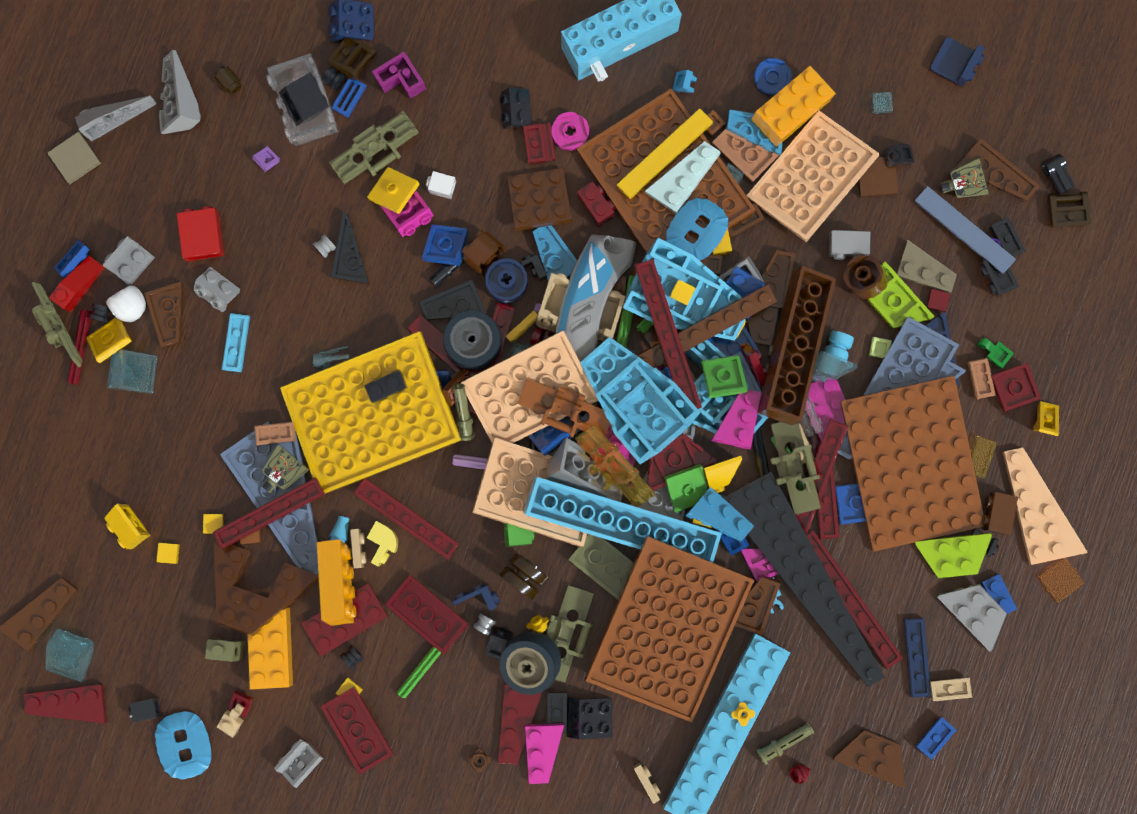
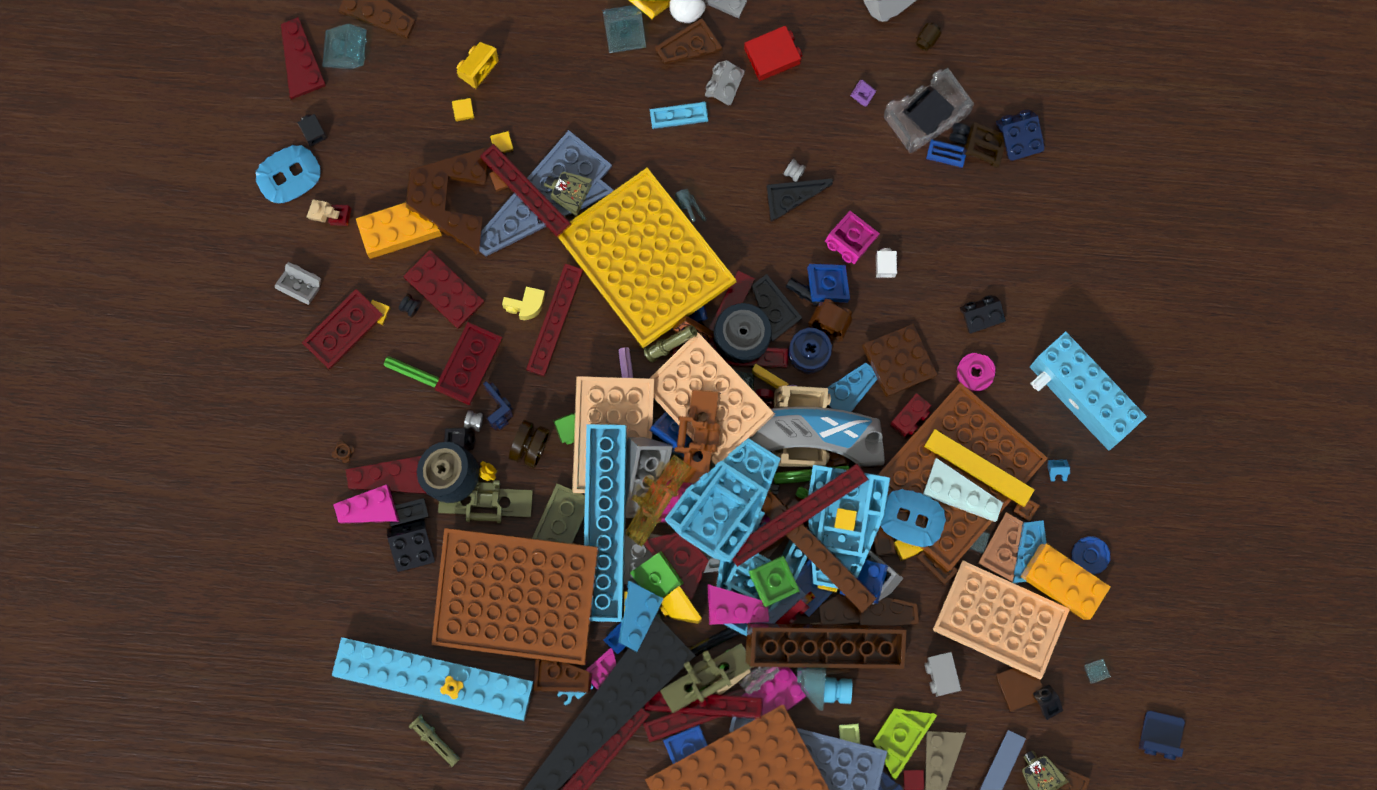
camera: 70 degrees right, 5 degrees down
(224, 649) = (386, 185): olive torso -> none
(275, 433) = (601, 174): nougat plate -> none
(335, 582) = (476, 269): light orange brick -> none
(340, 529) = (526, 261): medium azure cone -> none
(359, 556) = (506, 285): tan plate -> none
(370, 143) = (906, 185): olive piece -> none
(386, 386) = (674, 263): black plate -> none
(393, 190) = (867, 219): yellow plate -> none
(399, 71) = (984, 193): magenta brick -> none
(537, 269) = (831, 377): black bracket -> none
(539, 143) = (954, 345): dark red plate -> none
(651, 789) = (368, 611): tan plate -> none
(799, 773) = (409, 763): dark red plate -> none
(864, 286) = (914, 697): reddish brown brick -> none

